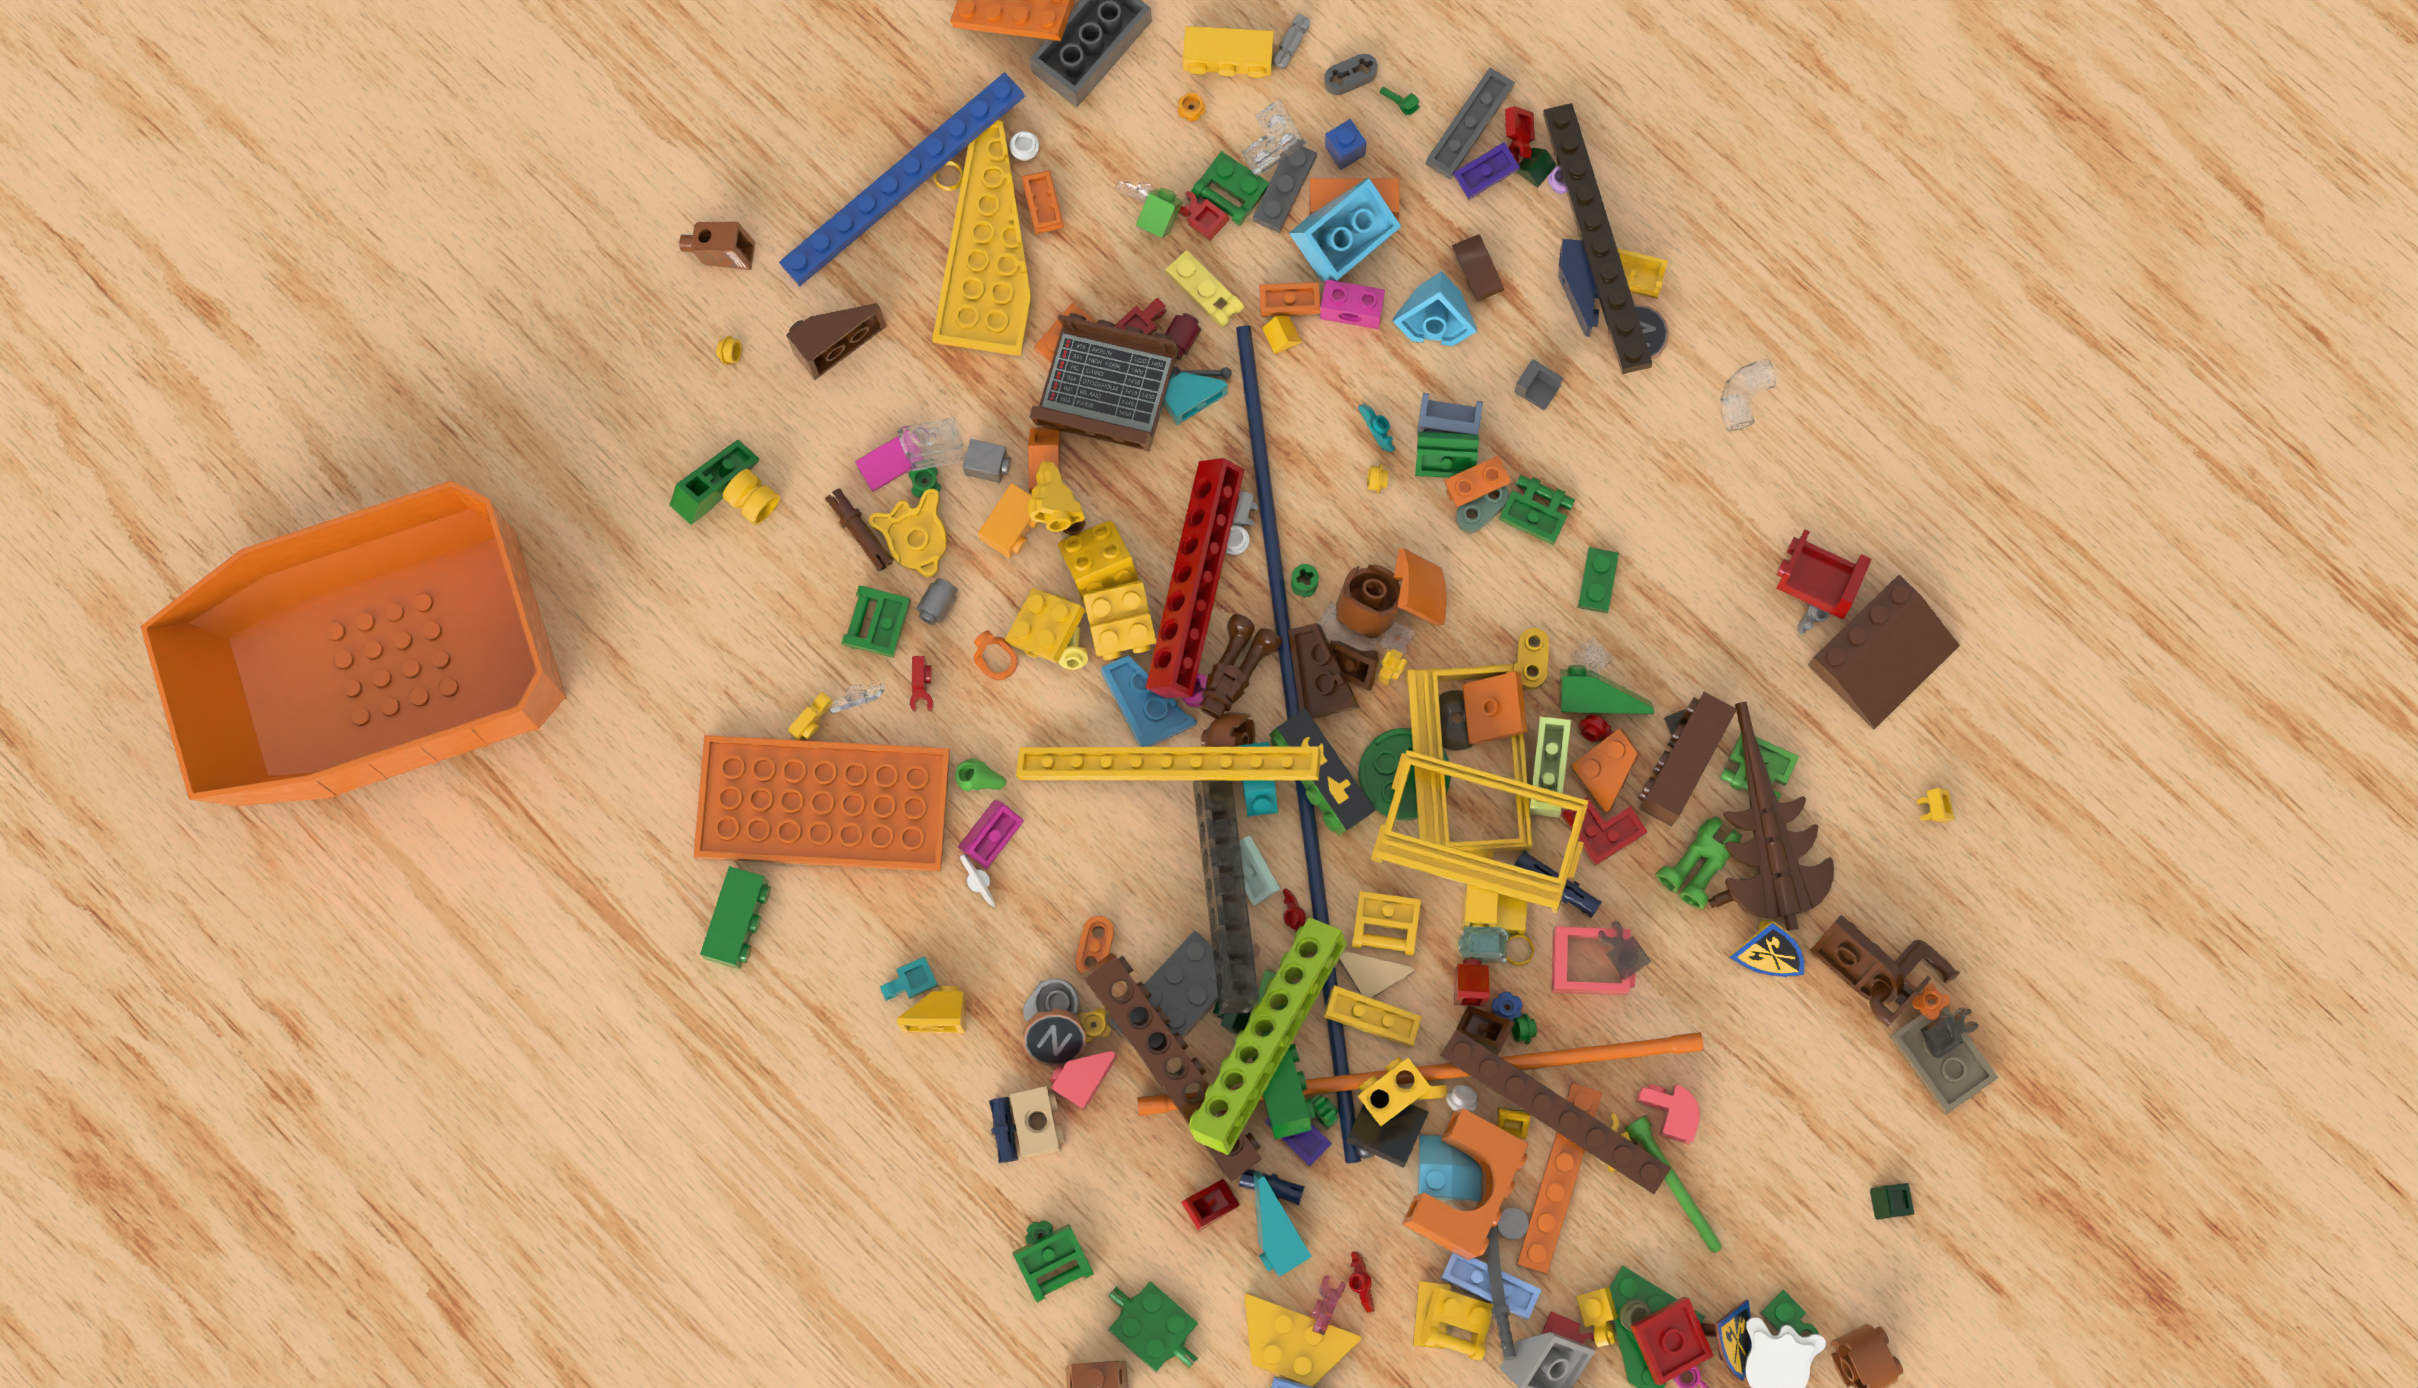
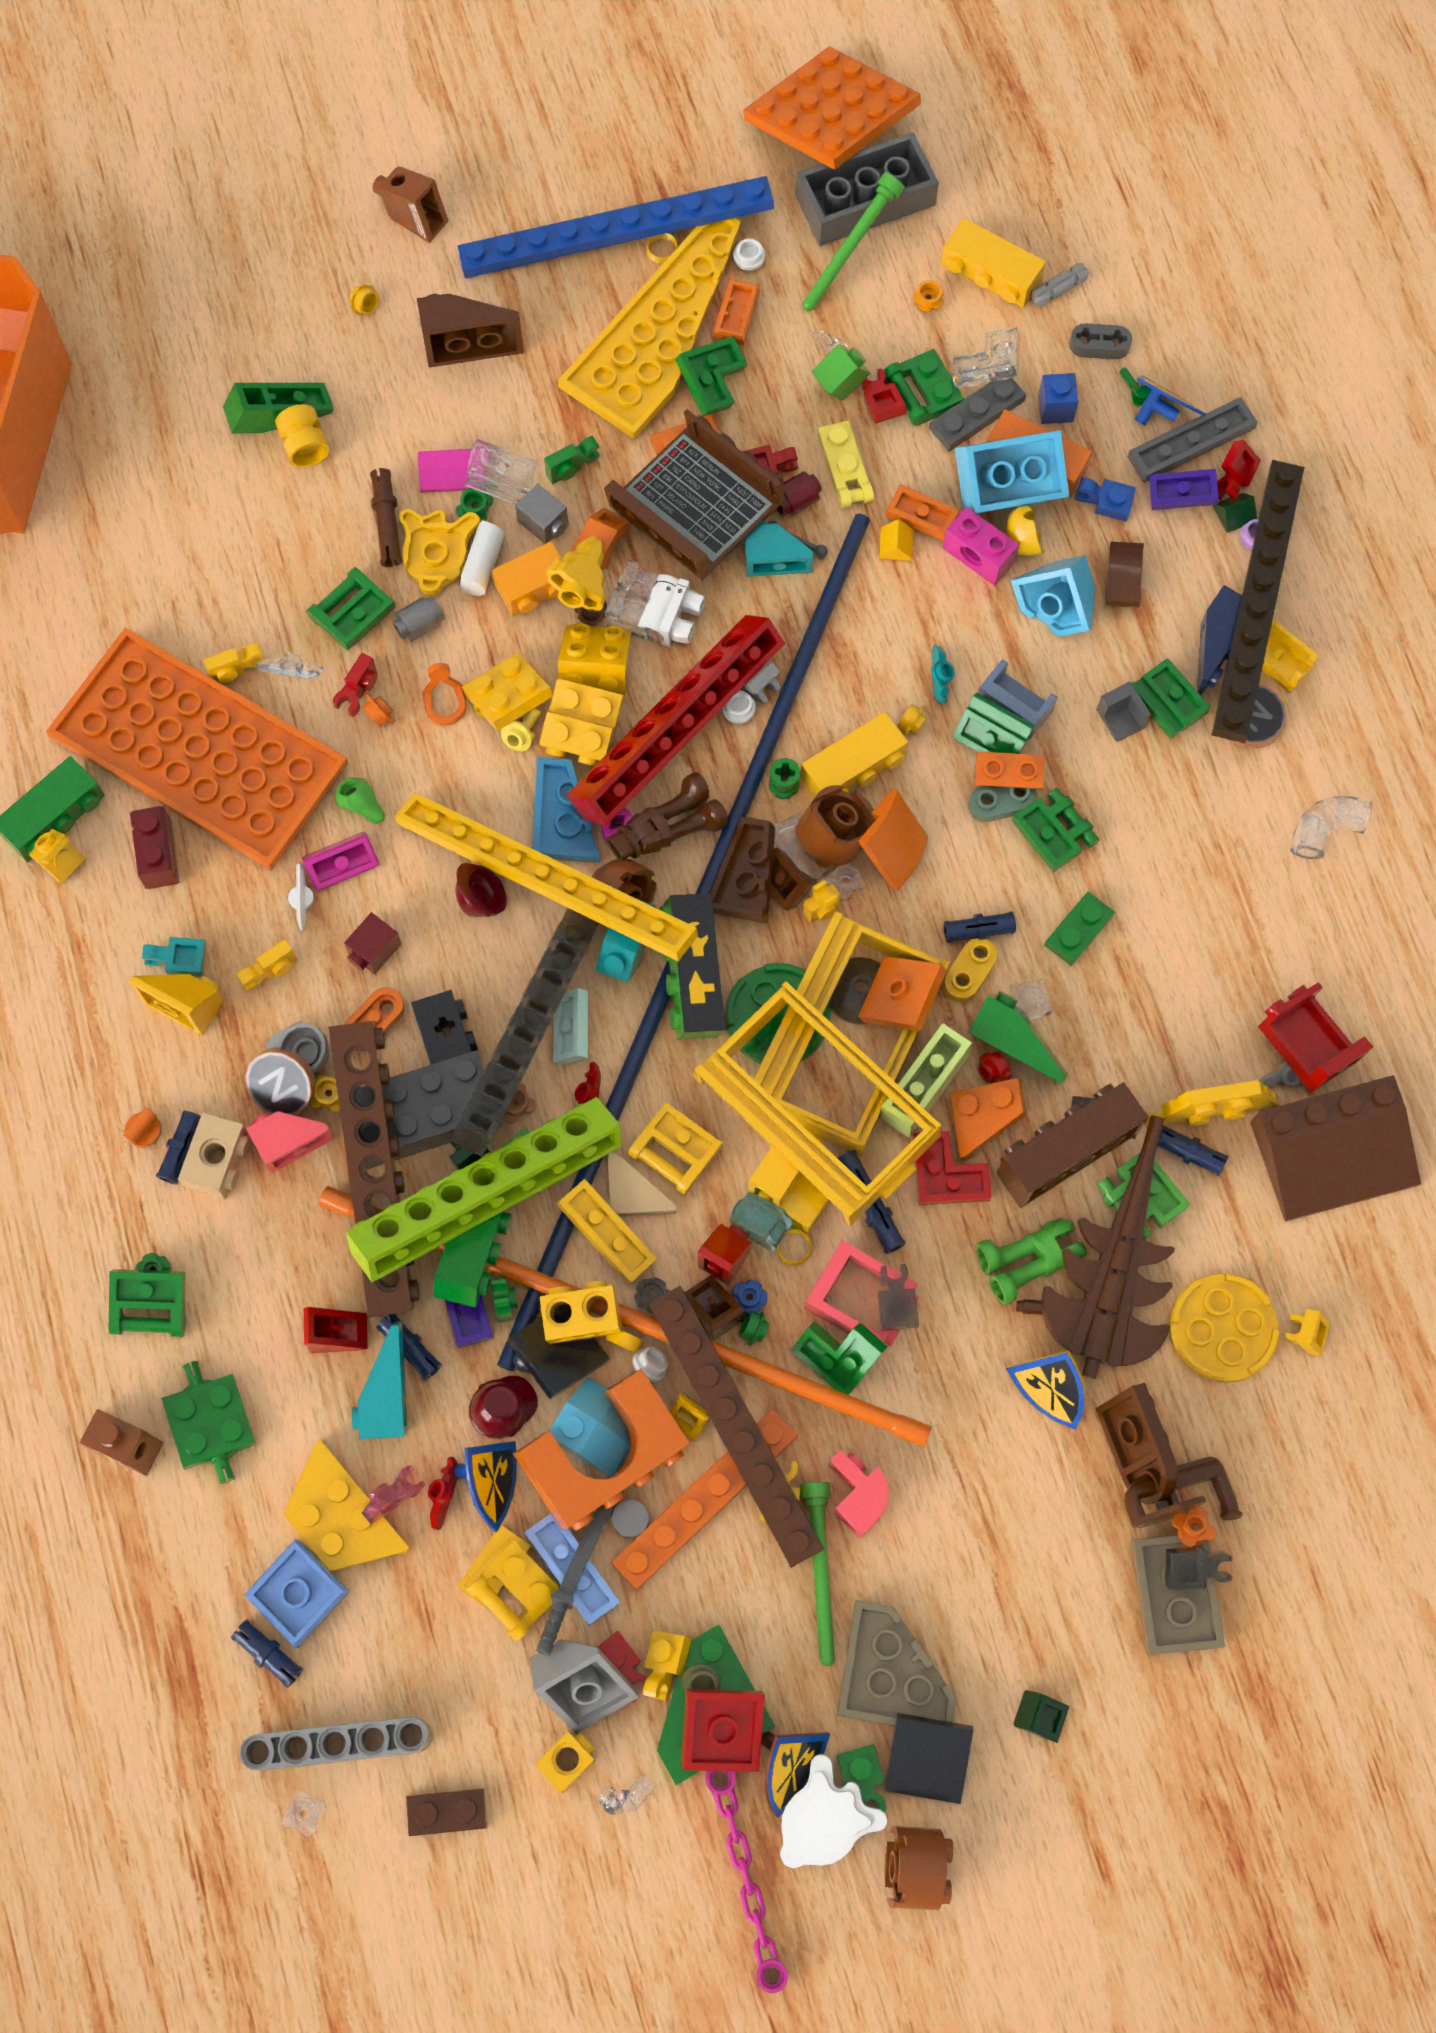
camera: 25 degrees right, 5 degrees down
(765, 952) = (56, 855): none -> yellow bracket
(840, 903) = (154, 847): none -> dark red brick
(950, 695) = (378, 710): none -> orange plate
(958, 524) = (481, 559): none -> white brick
(965, 1131) = (143, 1129): none -> orange plate
(979, 407) = (567, 461): none -> green plate
(991, 943) = (273, 962): none -> yellow plate
(1047, 271) = (705, 371): none -> green plate
(1058, 889) = (372, 944): none -> dark red brick
(1114, 38) = (887, 190): none -> bright green piece
(1118, 491) = (653, 605): none -> hips
(1120, 801) = (479, 891): none -> dark red hat
(1139, 921) = (438, 1013): none -> black brick
(1351, 535) = (856, 757): none -> yellow brick
(1368, 1192) = (502, 1406): none -> dark red hat
(1380, 276) = (1023, 530): none -> yellow hair
(1394, 1252) = (490, 1479): none -> shield
(1424, 1045) = (646, 1286): none -> clear smoke plate
(1428, 102) = (1154, 403): none -> blue shield
(1432, 207) = (1111, 499): none -> blue plate
(1506, 633) = (980, 925): none -> dark blue pin
(1568, 354) = (1170, 698): none -> green plate
(1603, 1022) = (837, 1363): none -> green plate
(1769, 1232) = (889, 1671): none -> dark tan plate
(1772, 672) = (1219, 1101): none -> yellow wing
(1778, 712) = (1192, 1150): none -> dark blue pin
(1829, 1277) = (929, 1758): none -> black tile
(1871, 836) = (1224, 1327): none -> yellow tile

